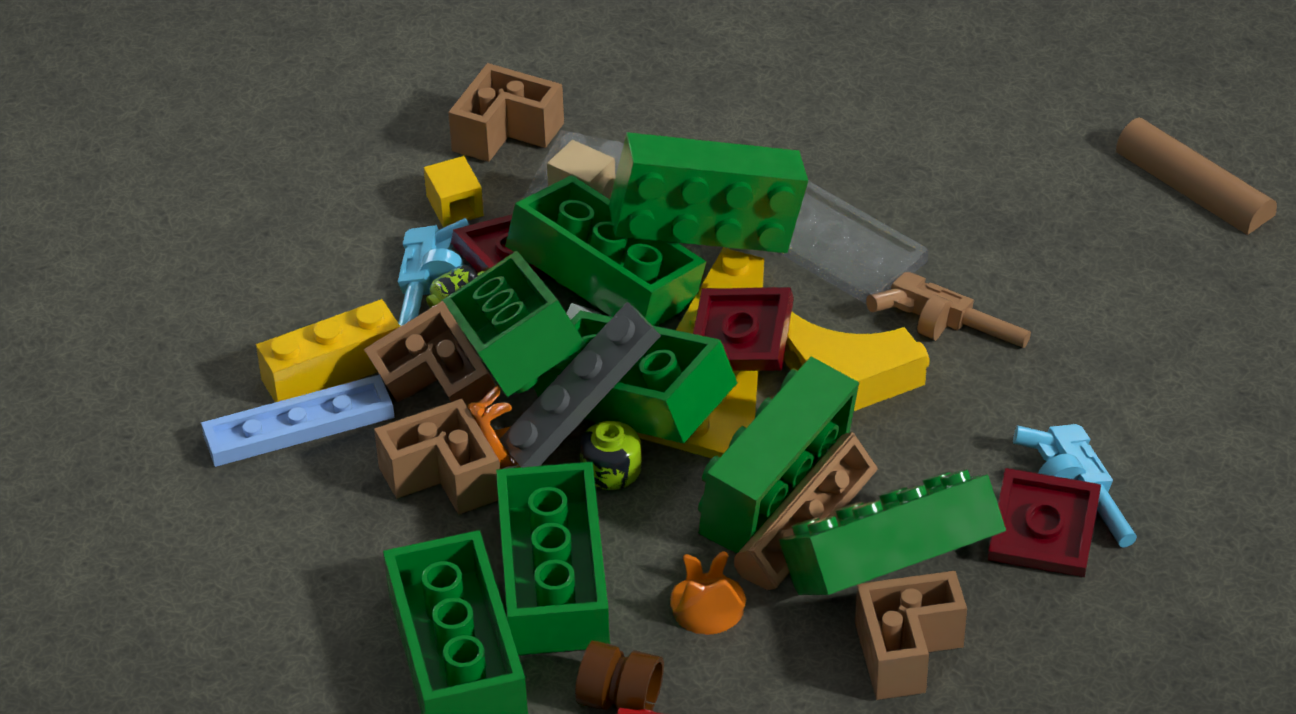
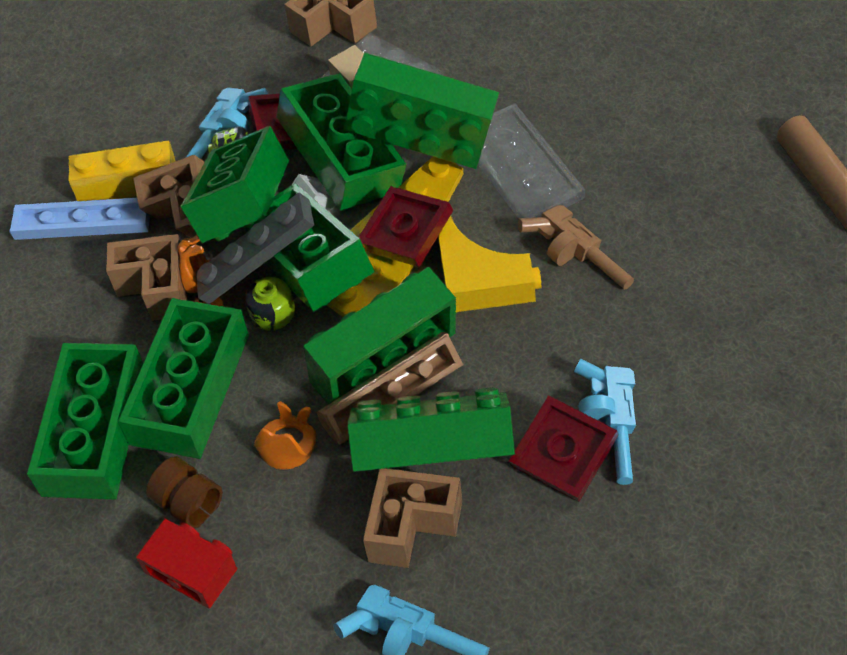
camera: 25 degrees right, 10 degrees up
(453, 191) = (270, 64): yellow brick -> none

